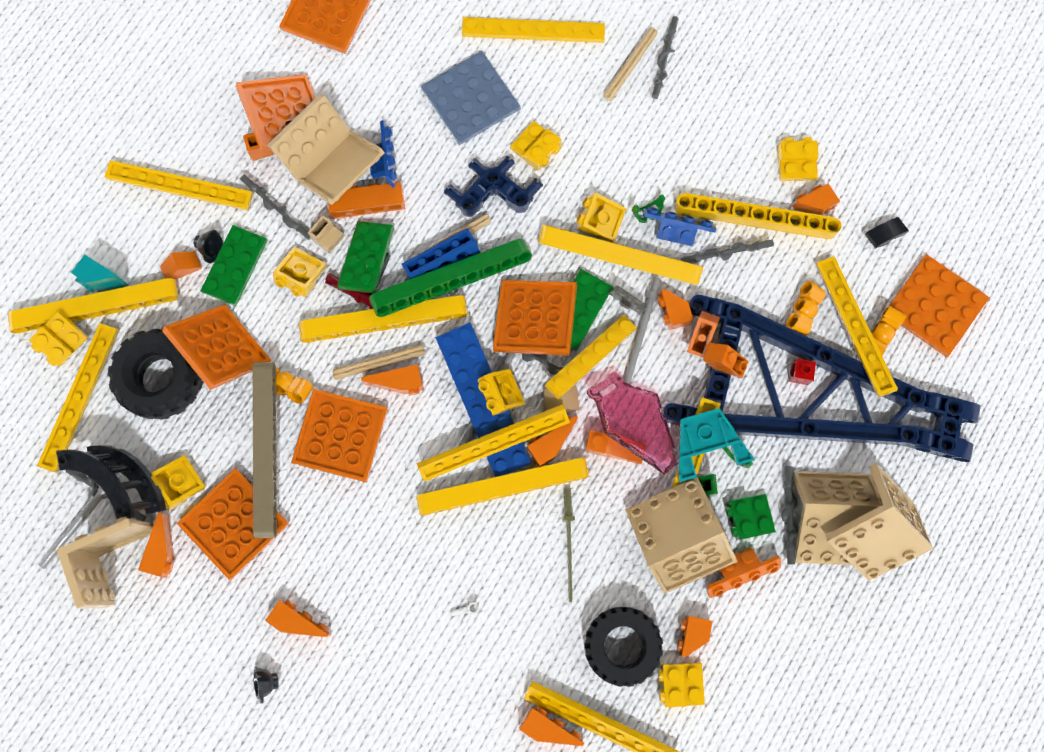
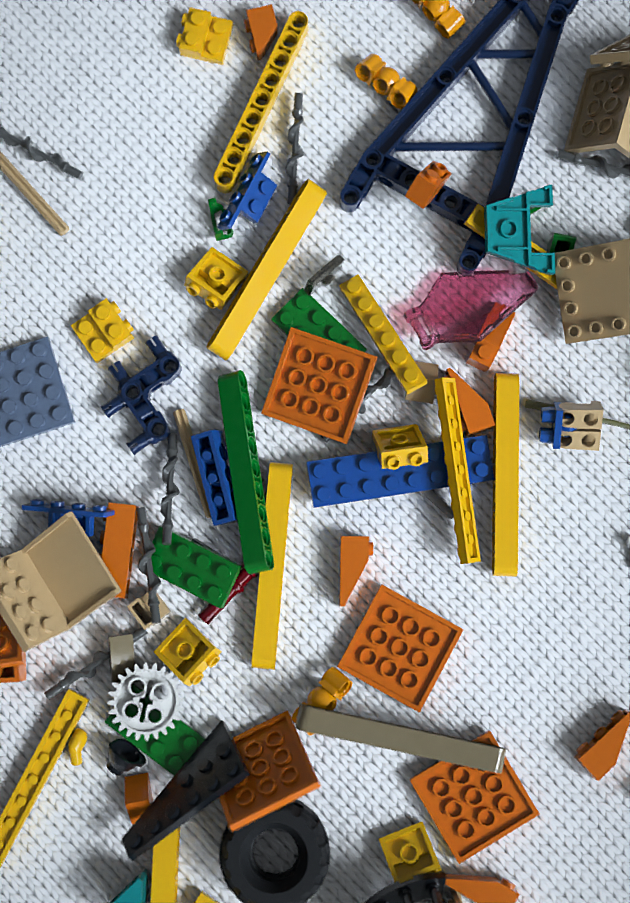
camera: 75 degrees left, 5 degrees up
(201, 305) = (199, 782): none -> black wing
(210, 208) = (75, 746): none -> yellow arm
(252, 264) = (125, 697): none -> white gear
(283, 224) = (121, 655): none -> dark tan slope
(357, 221) = (146, 567): none -> dark grey piece
(378, 362) = (322, 578): tan axle -> none
(423, 227) = (171, 489): none -> dark grey piece
(556, 530) = (572, 425): none -> tan hips
(651, 298) = (326, 248): light grey bar -> none
(676, 310) = (349, 225): orange slope -> none
(703, 334) = (389, 200): orange brick -> none
(750, 517) = (604, 211): green plate -> none
(802, 371) = (457, 106): red brick -> none
(856, 327) = (422, 31): yellow plate -> none

